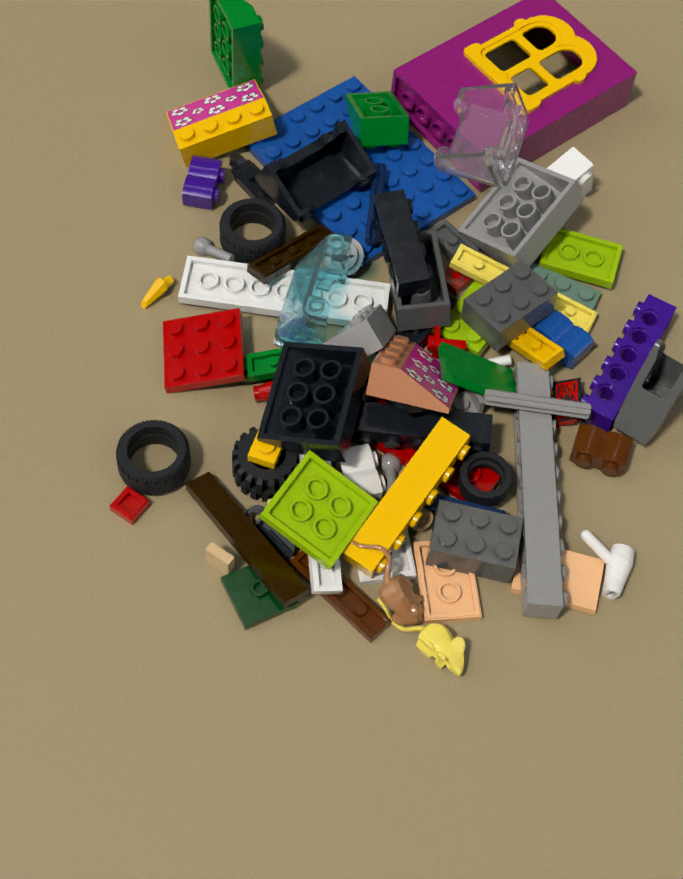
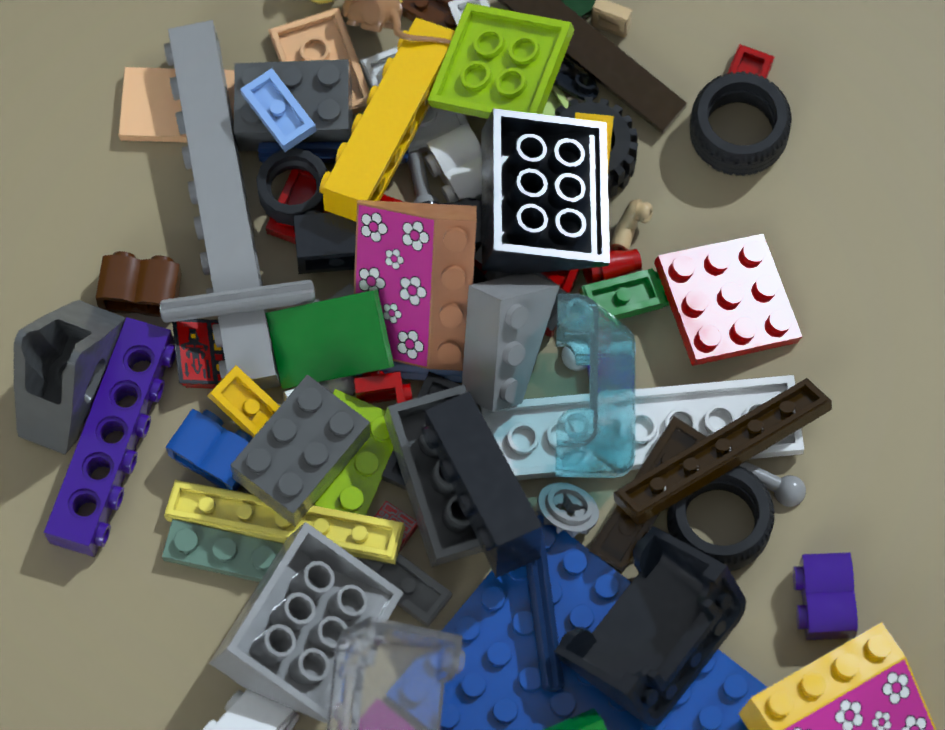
camera: 175 degrees right, 10 degrees up
(156, 290) = (832, 383): yellow bar -> none
(240, 250) = (722, 451): none -> dark brown tile
(244, 175) = (764, 641): black hinge -> none
(251, 418) = (627, 225): none -> tan arm
(490, 511) = (278, 110): none -> light blue plate
(582, 257) = (190, 610): lime plate -> none
(618, 564) = (101, 127): white piece -> none

